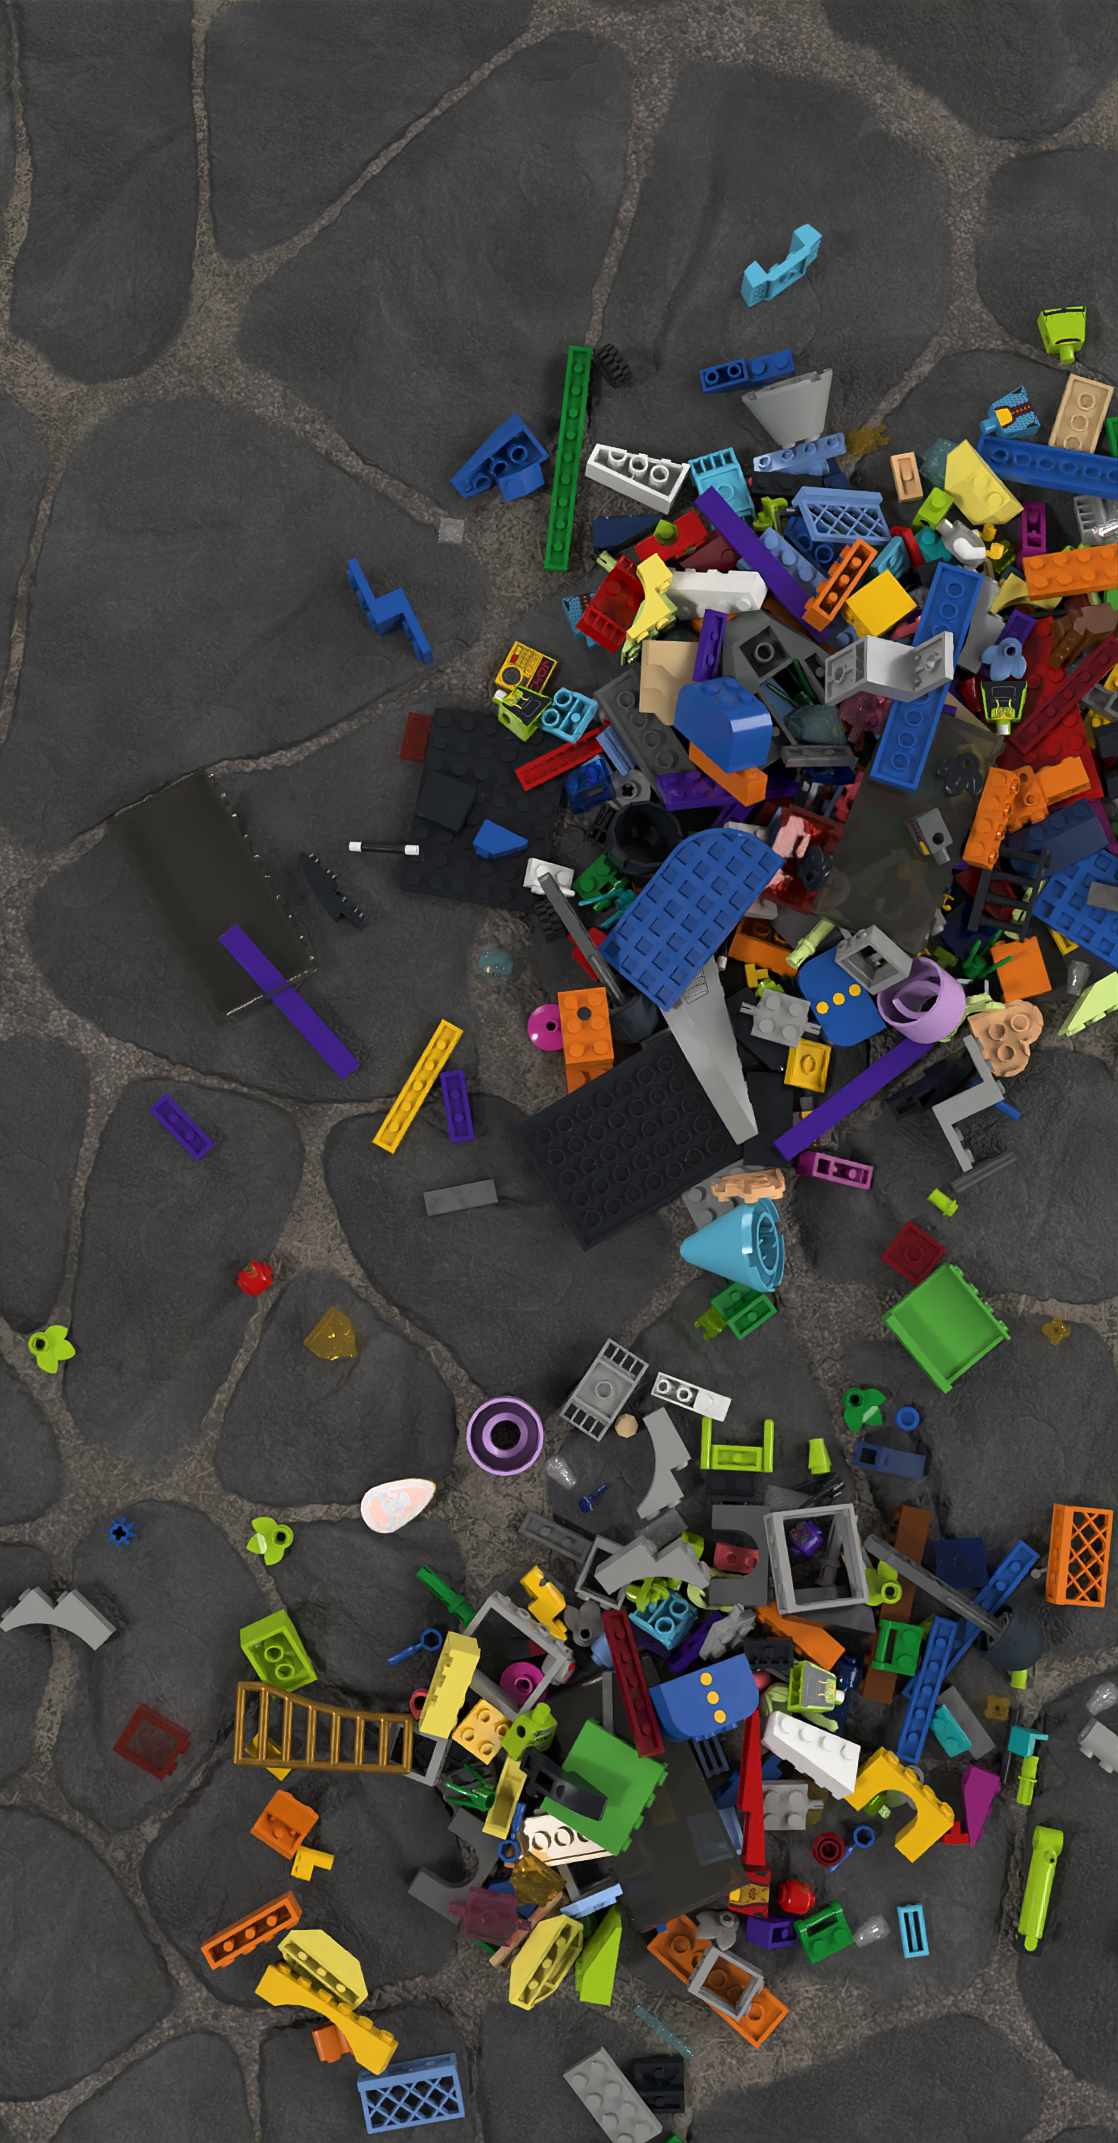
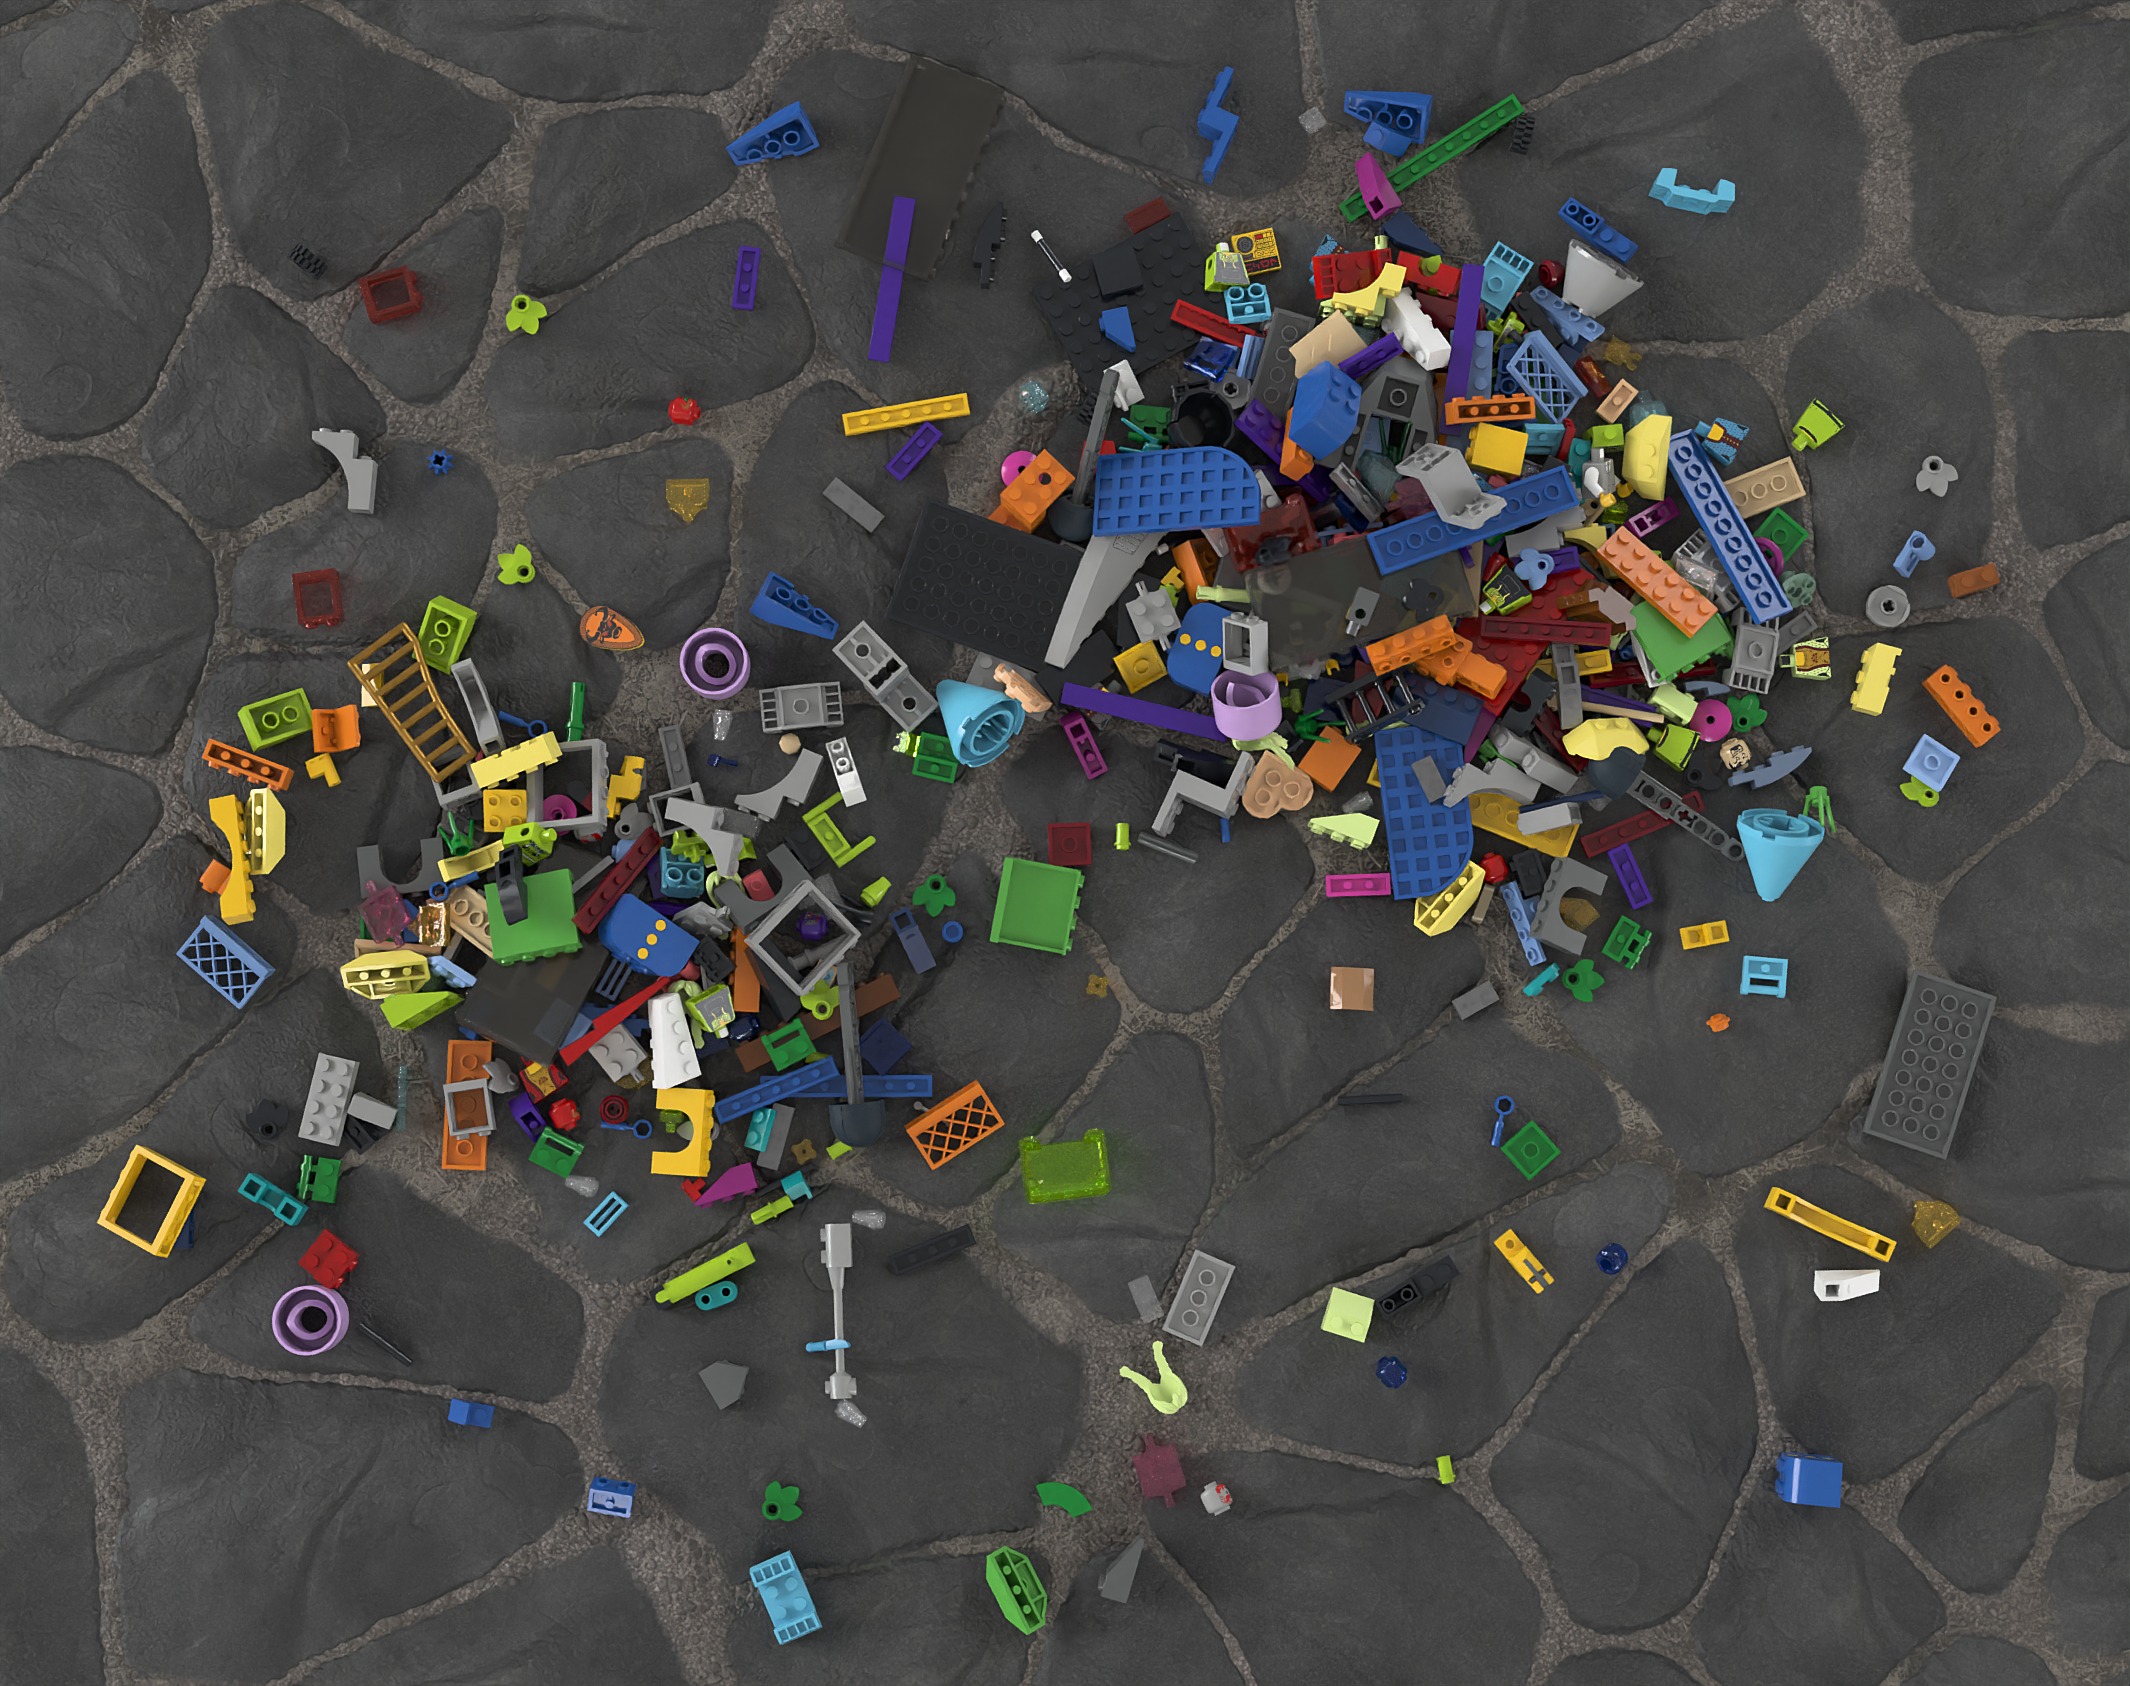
camera: 50 degrees right, 0 degrees up
(79, 993) = (779, 135): none -> blue wedge
(231, 1868) = (276, 719): none -> lime slope
(374, 1678) = (479, 707): none -> light grey arch
(502, 1331) = (783, 606): none -> blue wedge
(556, 524) = (1375, 188): none -> magenta slope
(638, 476) = (1459, 218): white wedge -> none
(641, 1295) = (885, 677): none -> light grey bracket
(655, 2070) = (372, 1110): none -> light grey slope
(751, 440) = (1551, 273): none -> dark red cone
(869, 478) = (1594, 376): none -> clear red tile
(1062, 1890) = (716, 1295): none -> teal plate

